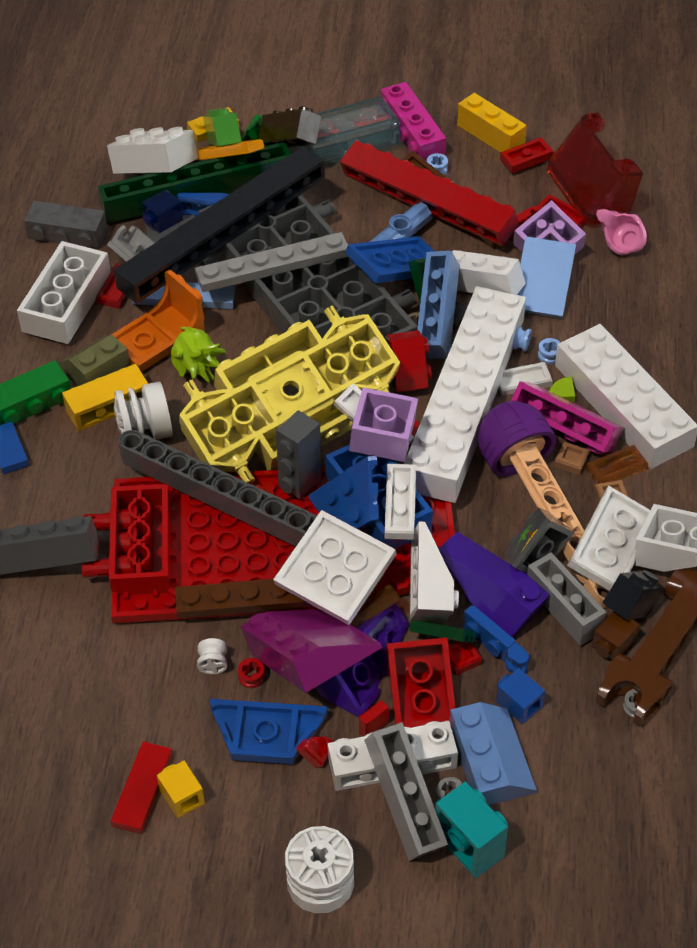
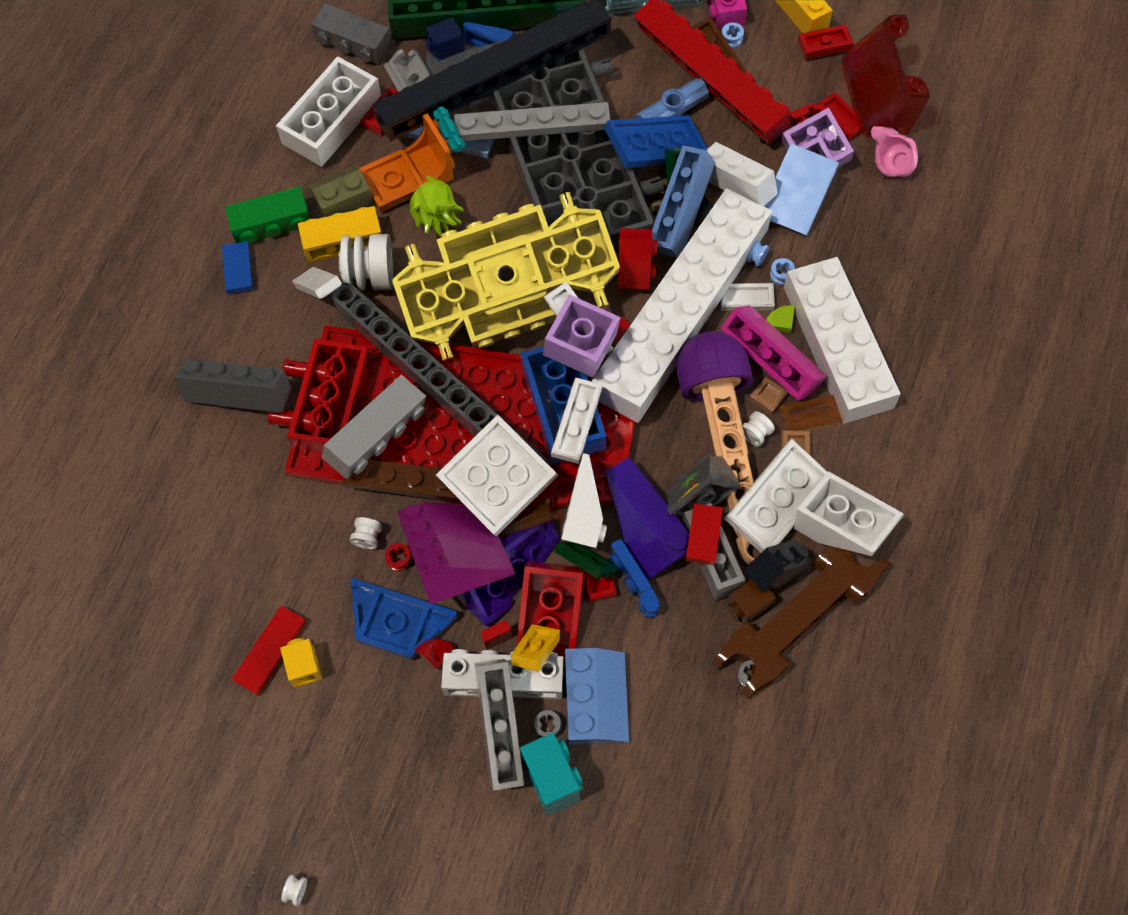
camera: 15 degrees right, 15 degrees up
(98, 439) = (317, 282): none -> white tile
(194, 280) = (449, 129): none -> teal axle
(197, 551) = (374, 427): none -> light grey brick
(298, 454) = (494, 347): dark grey brick -> none
(319, 869) = (419, 778): white wheel -> none
(350, 495) = (529, 406): blue wing -> none
(420, 715) = (535, 647): none -> yellow plate
(520, 695) = (640, 642): blue brick -> none
(554, 579) = (704, 534): none -> red tile
(572, 485) = (757, 428): none -> white wheel

